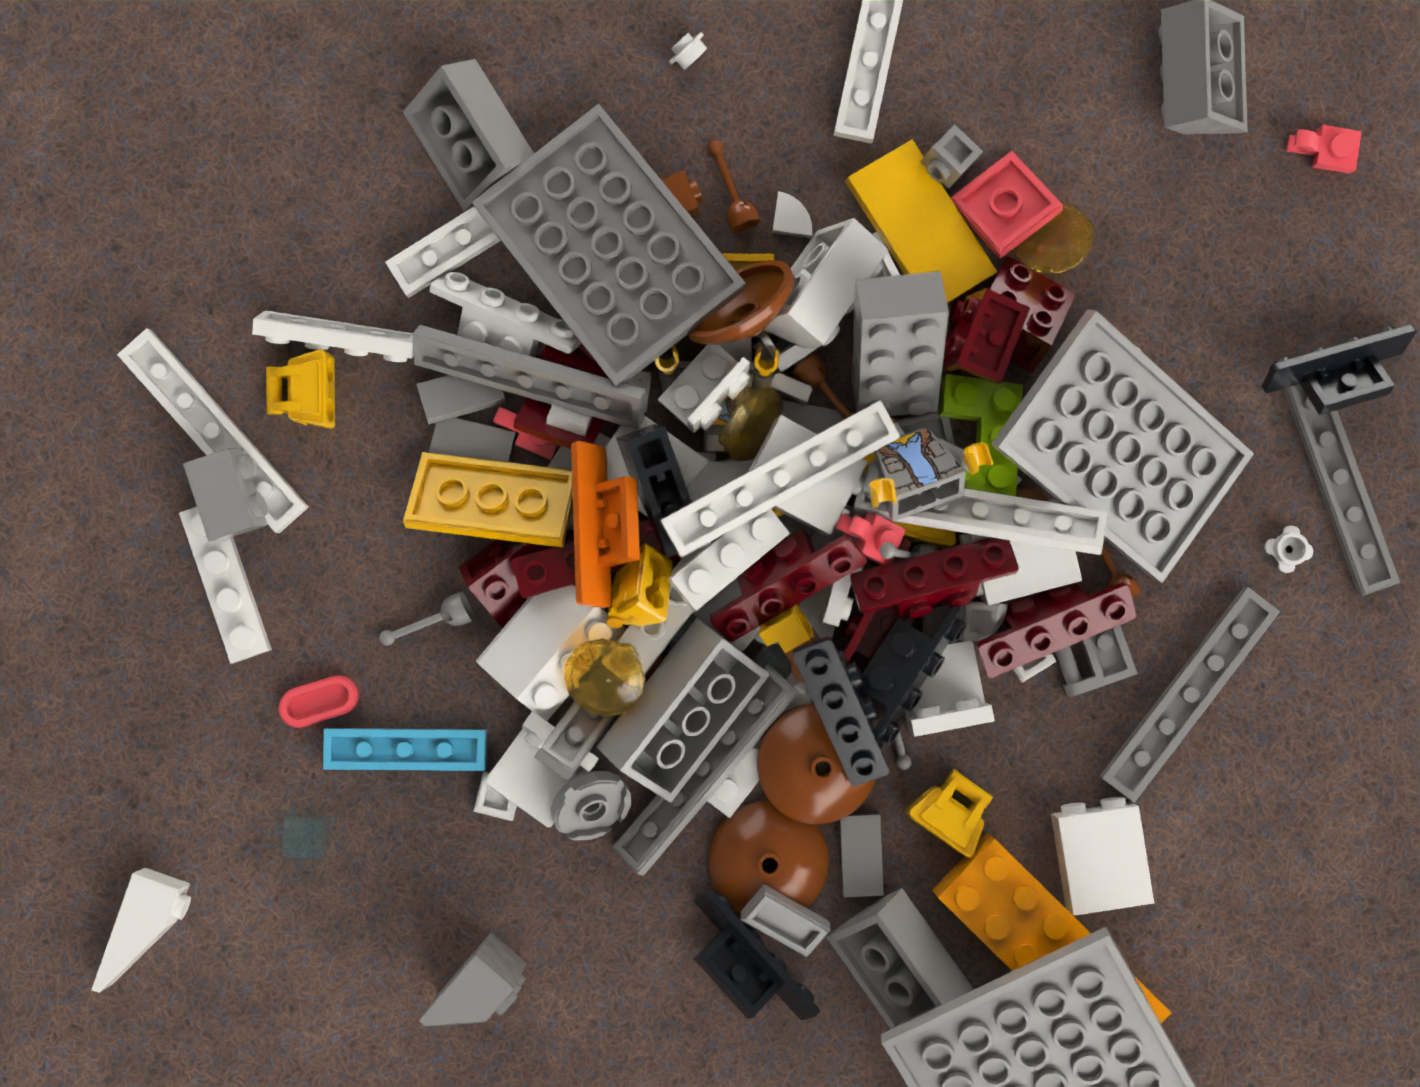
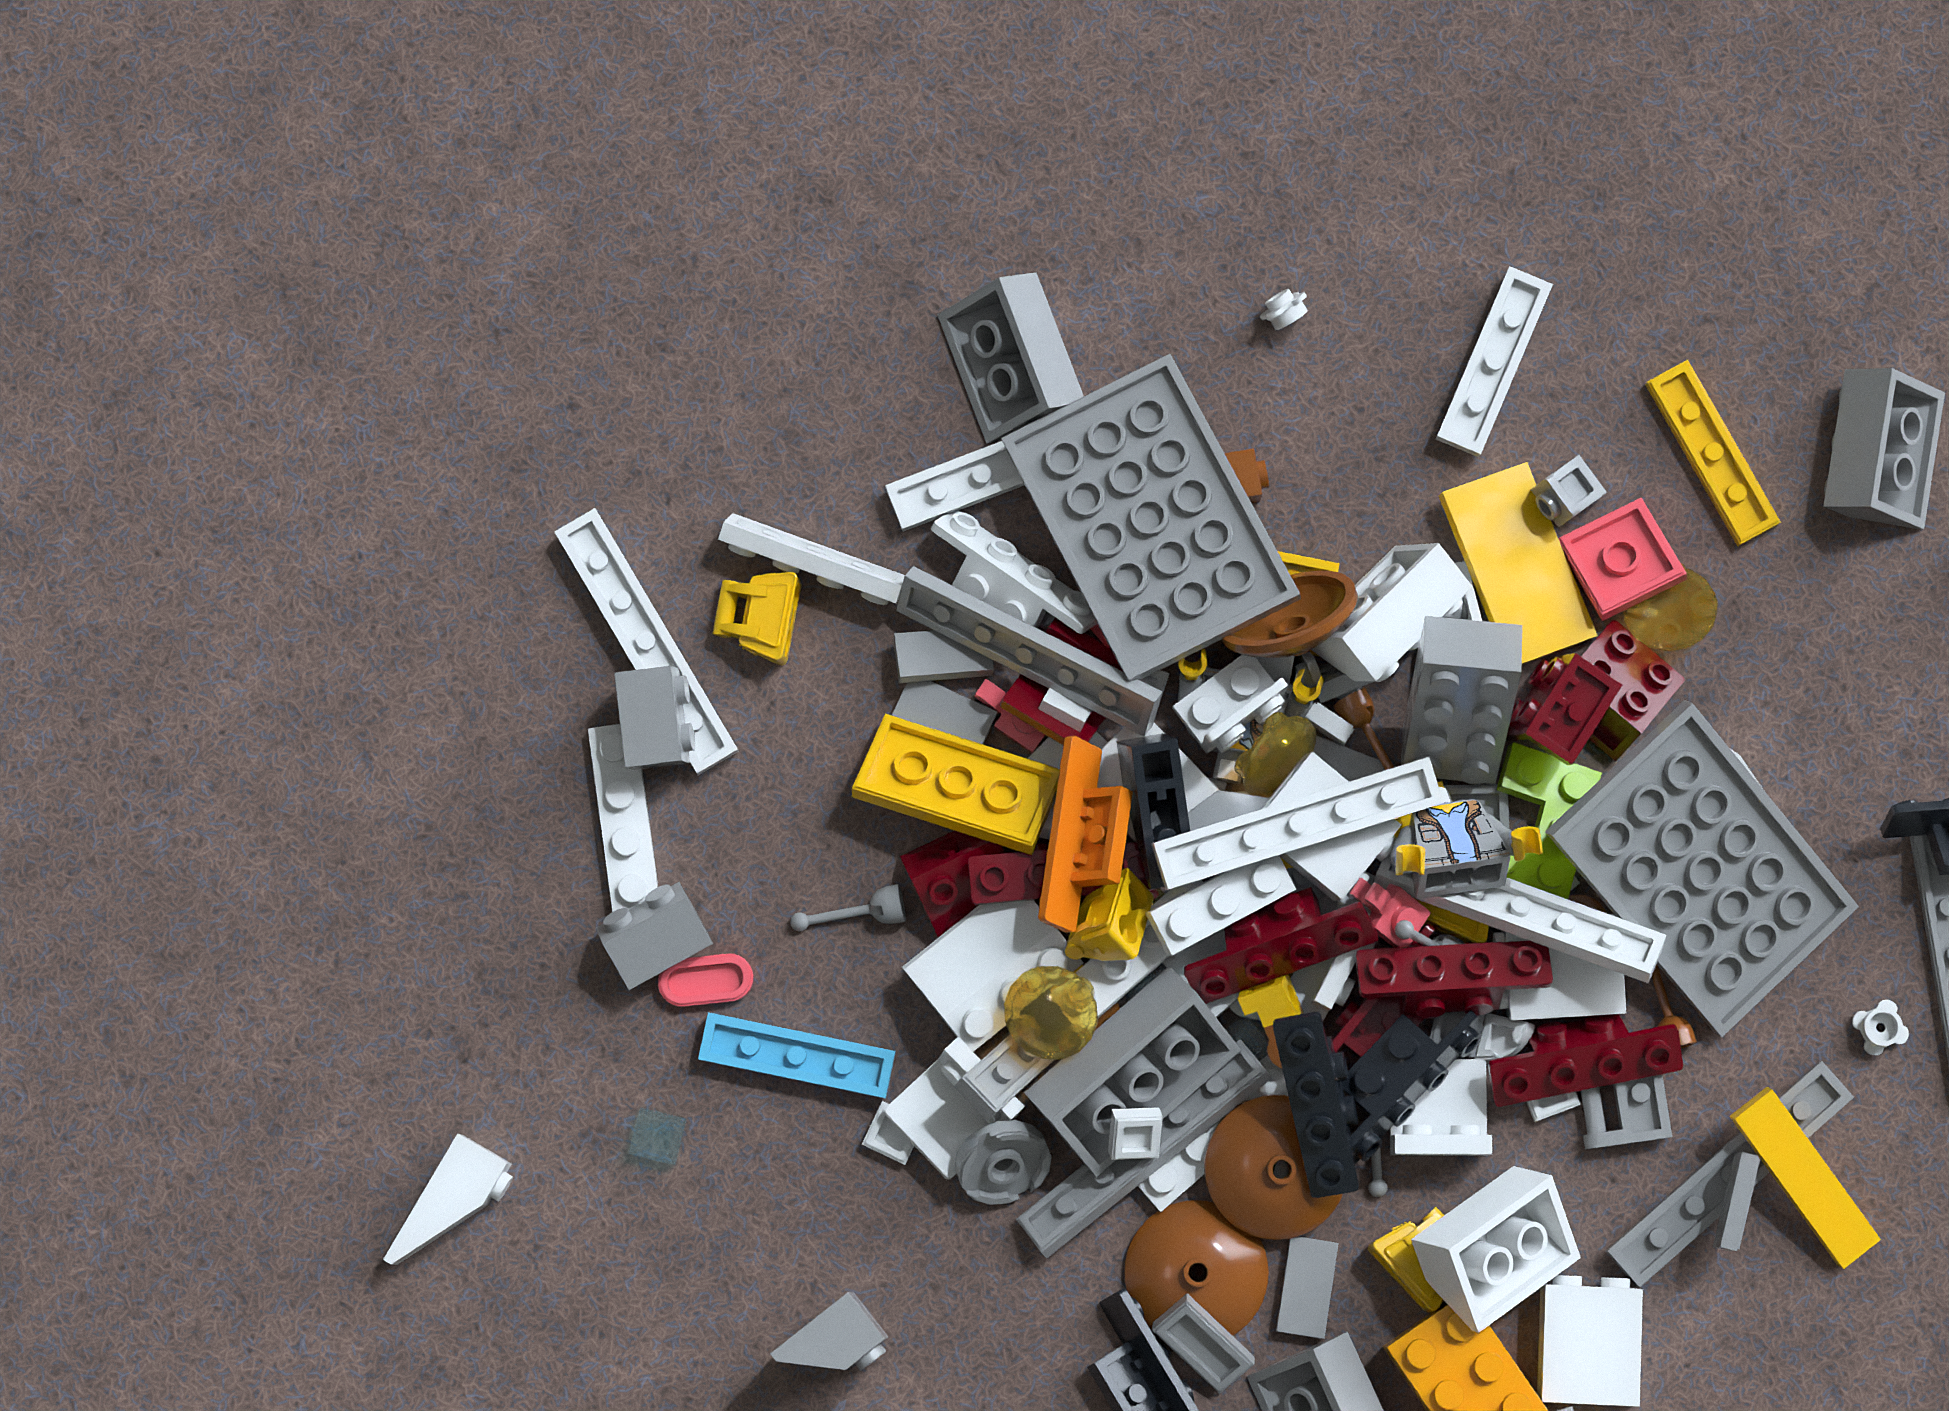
camera: 15 degrees right, 5 degrees down
(264, 674) = (653, 934): none -> light grey brick
(695, 763) = (1135, 1133): none -> white tile
(741, 213) = (1310, 509): dark orange hinge -> none
(791, 217) = (1368, 525): white tile -> none
(1012, 796) = (1497, 1246): none -> white slope
(1063, 102) = (1712, 453): none -> yellow tile
(1203, 719) = (1736, 1201): none -> light grey tile
(1252, 686) = (1805, 1177): none -> yellow tile

